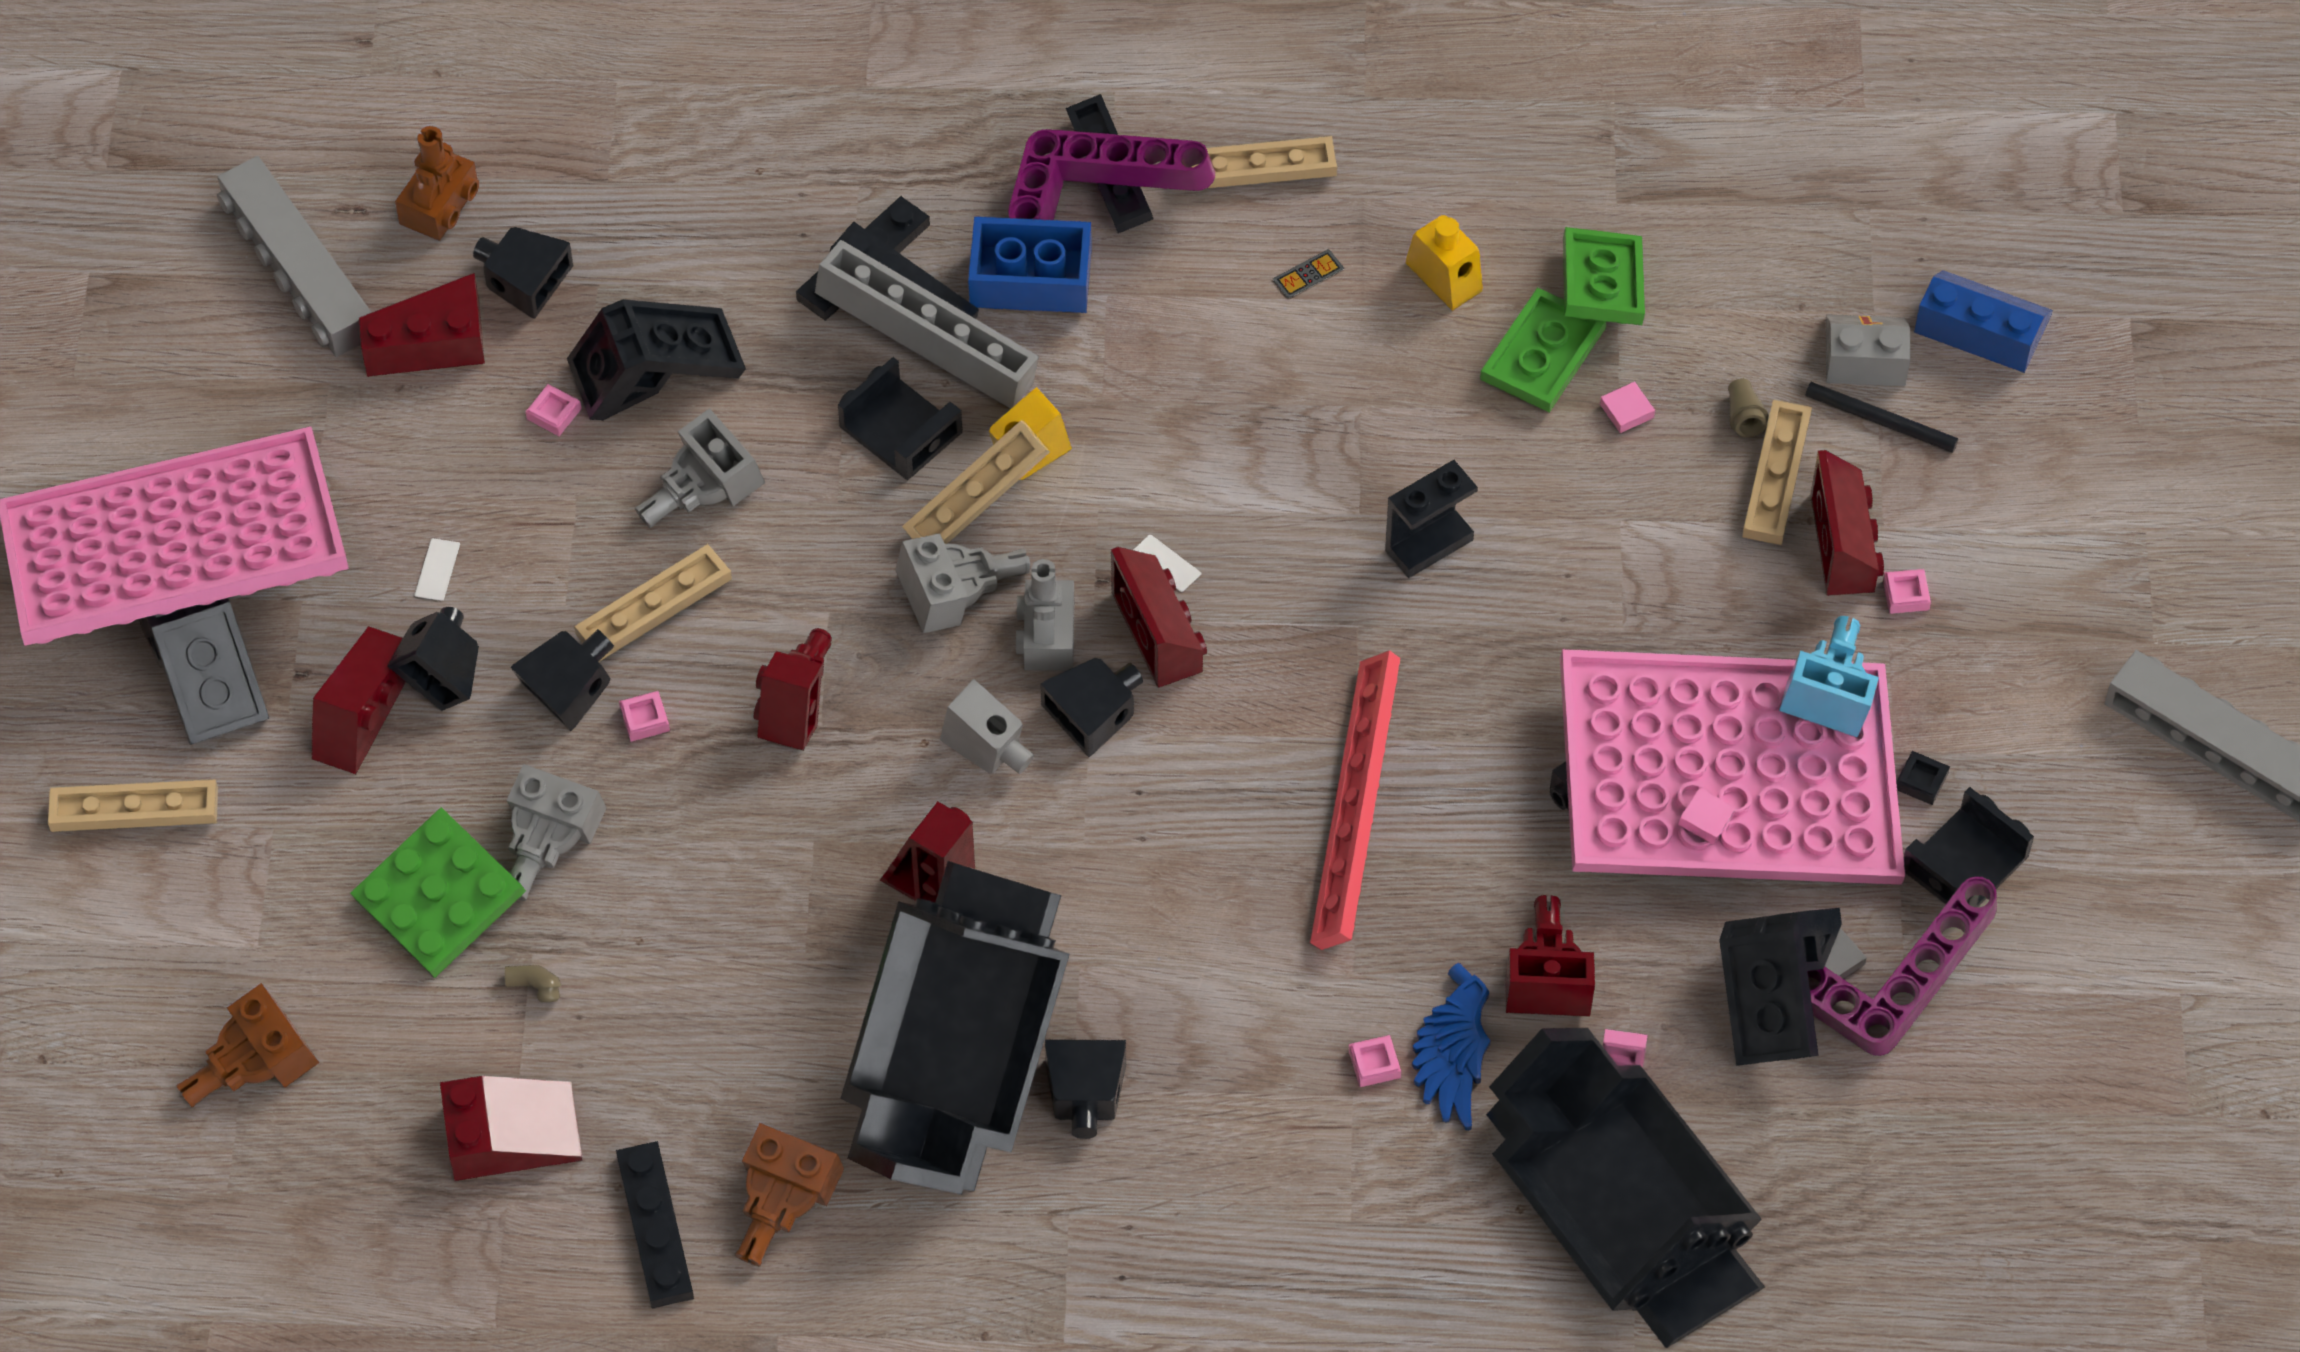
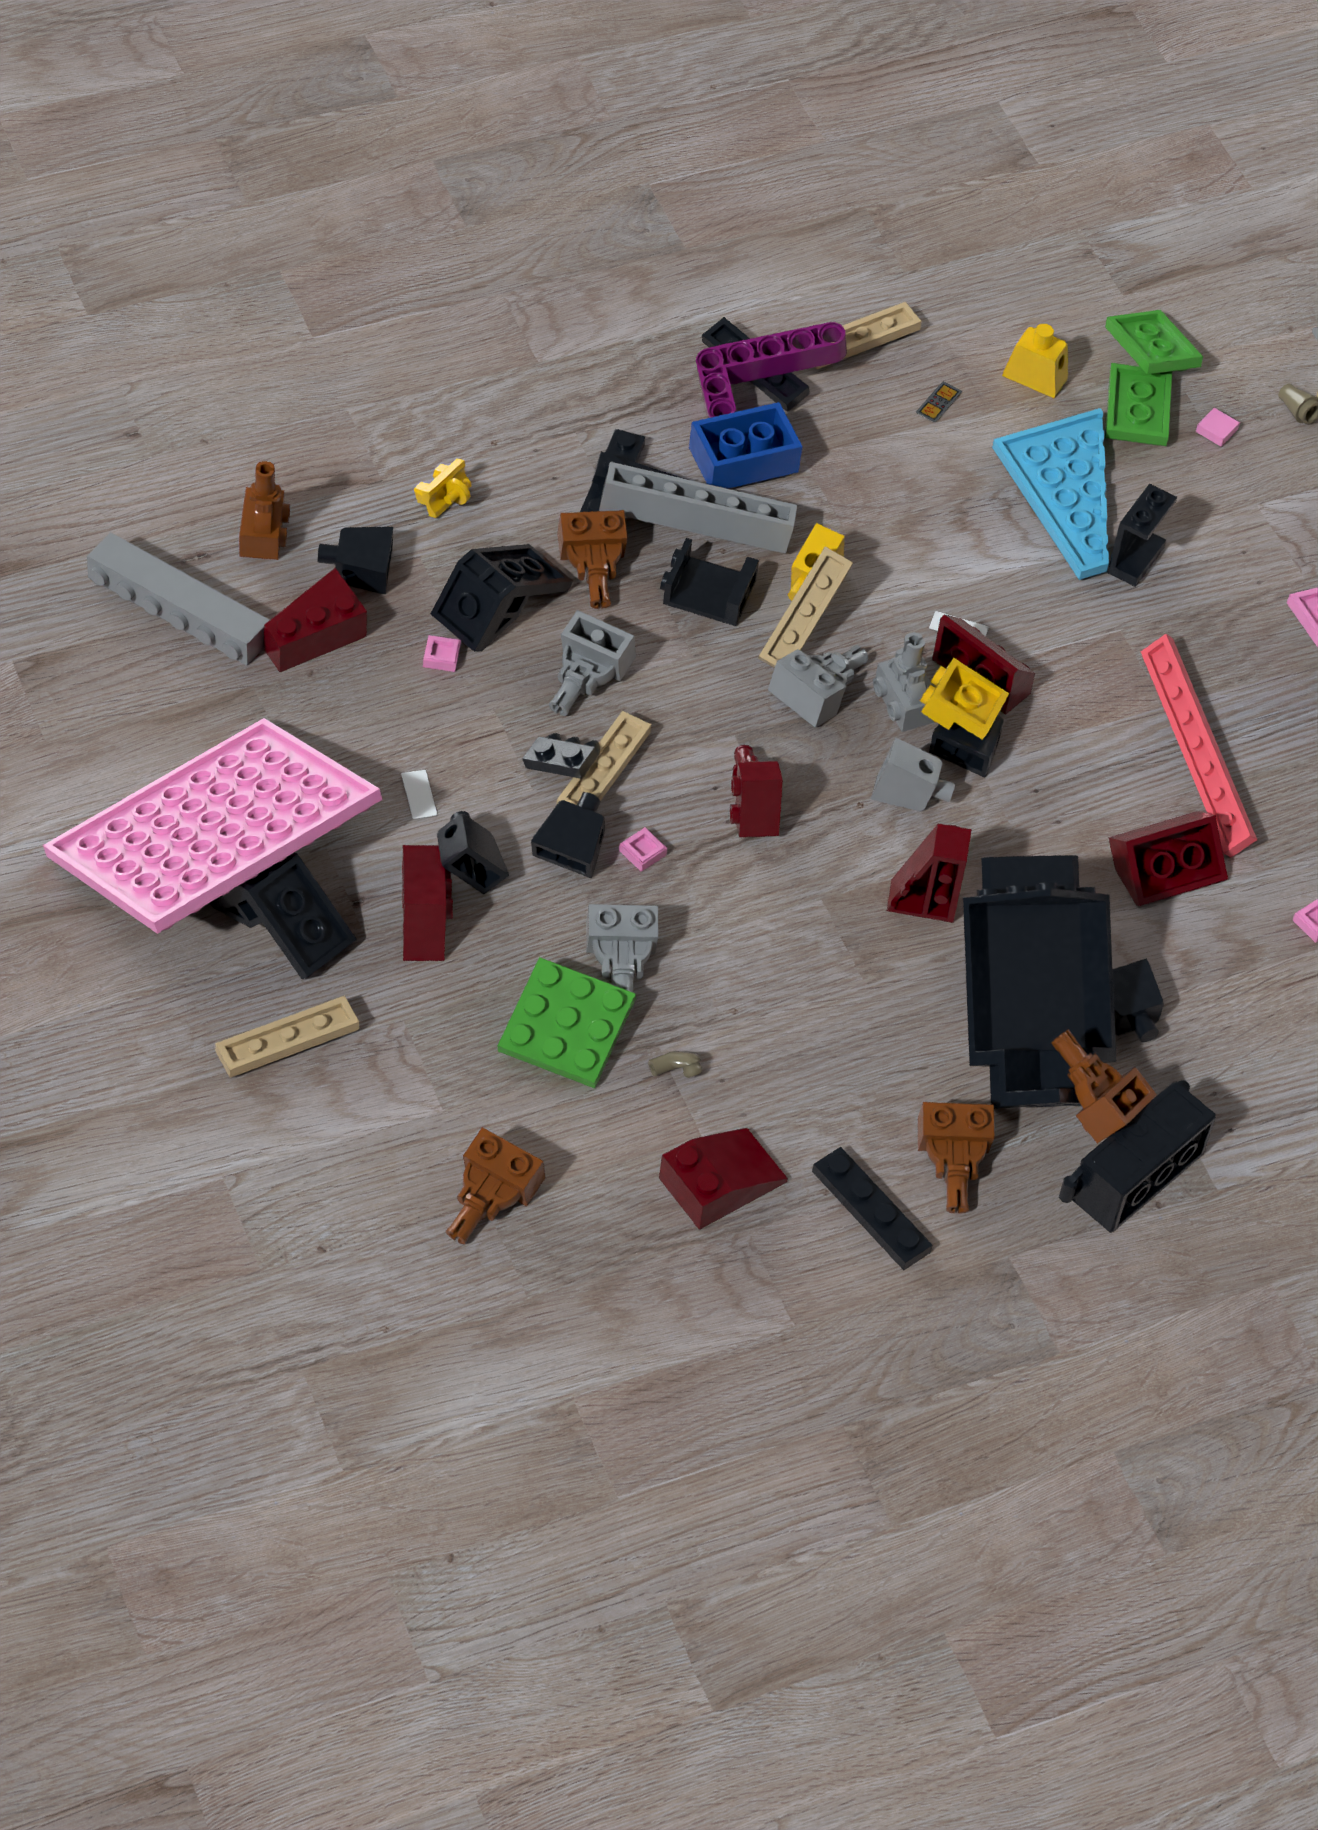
camera: 30 degrees left, 5 degrees down
(612, 575) = (561, 757): none -> black plate
(664, 212) = (448, 486): none -> yellow hips
(786, 336) = (596, 544): none -> dark orange brick
(956, 1180) = (1105, 1094): none -> dark orange brick
(978, 1273) = (1141, 1157): none -> black container
(1087, 657) = (963, 698): none -> yellow plate
(1237, 926) = (1169, 857): none -> dark red slope
(1391, 420) = (1064, 483): none -> medium azure wing

